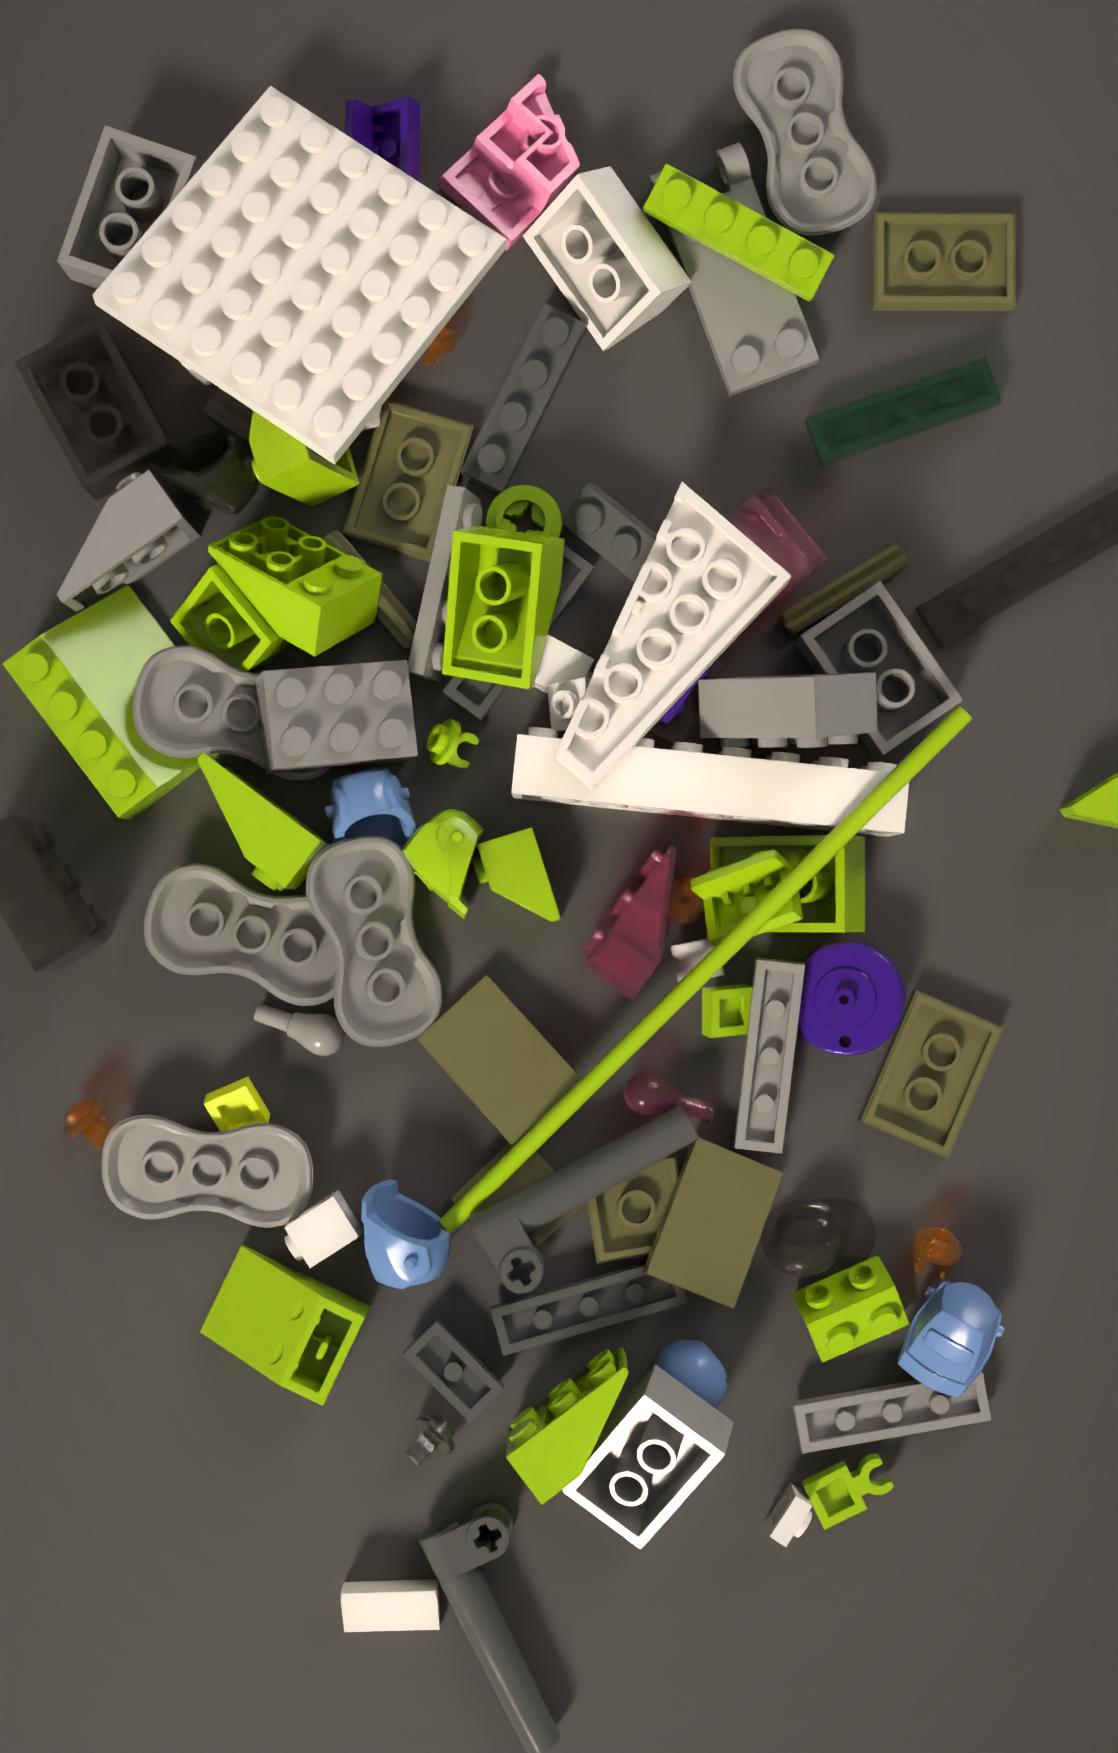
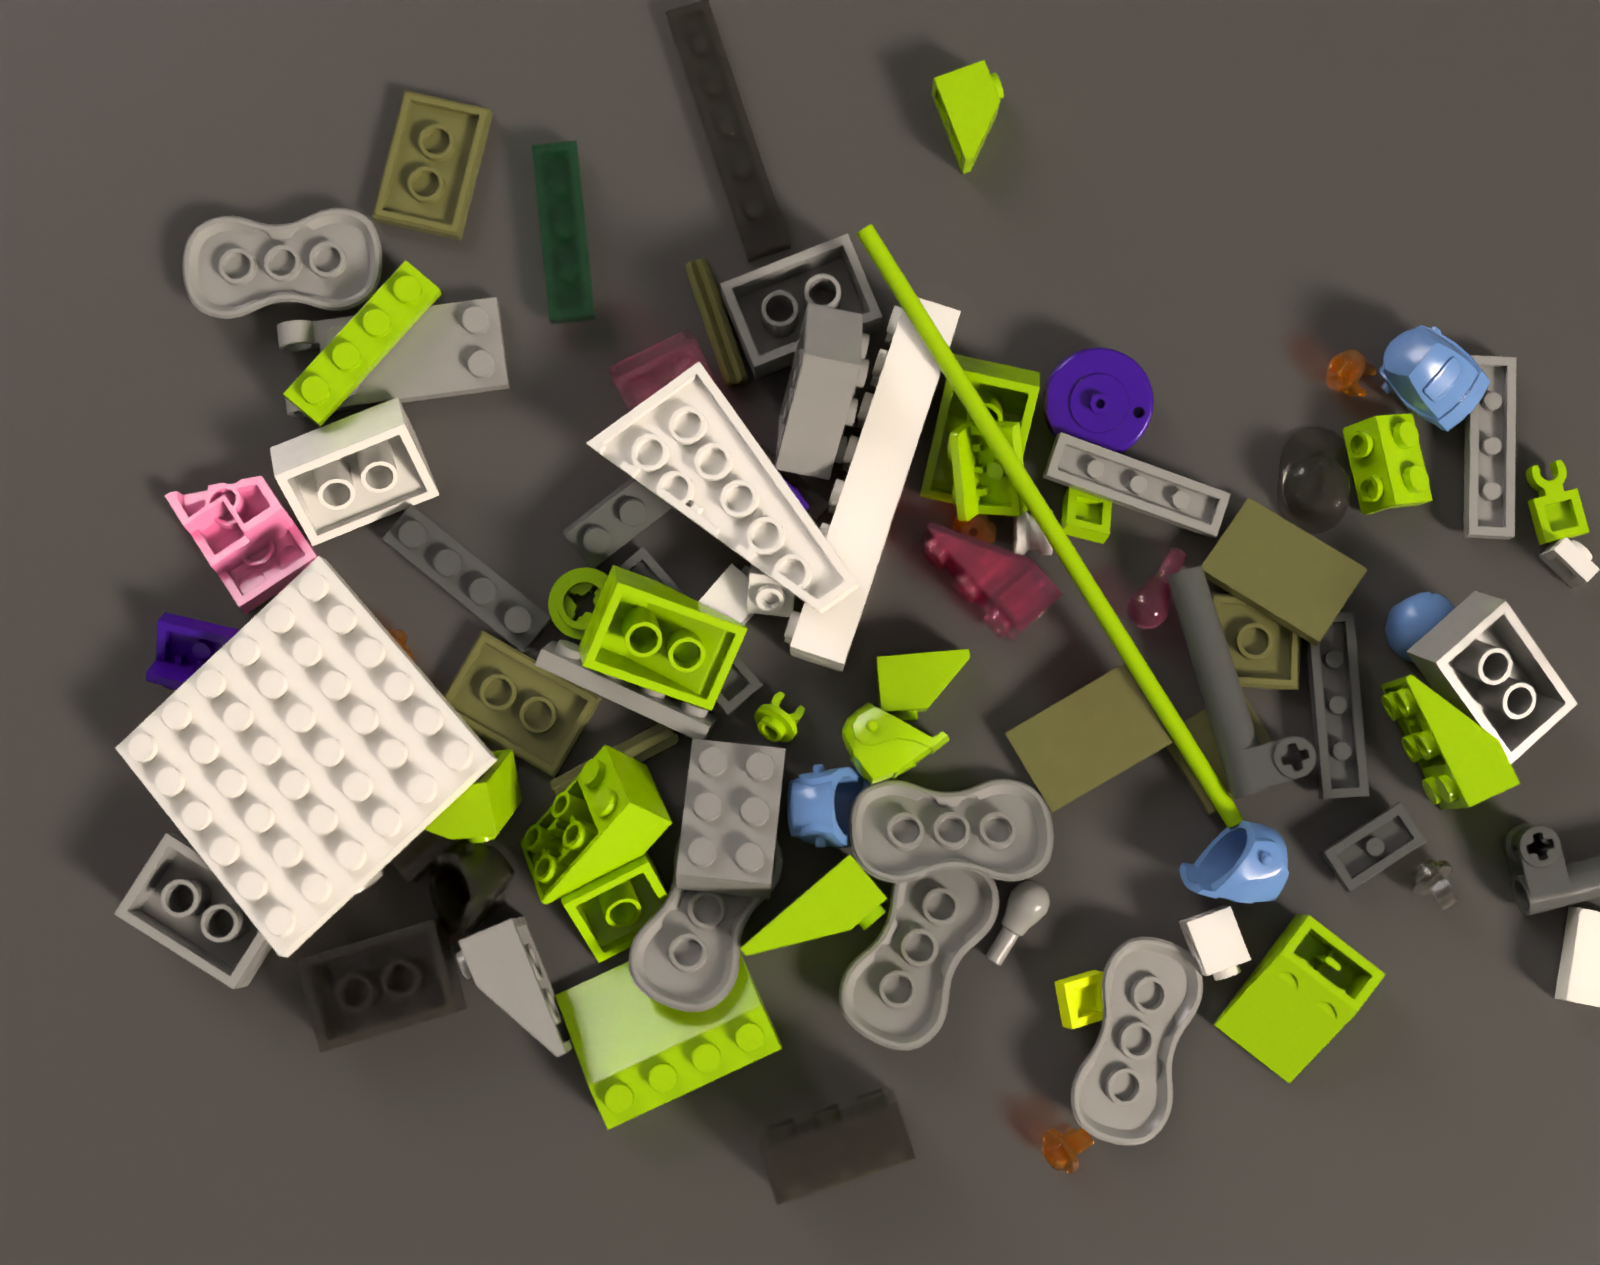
camera: 75 degrees left, 5 degrees down
(931, 1073) = (1183, 342): olive tile -> none

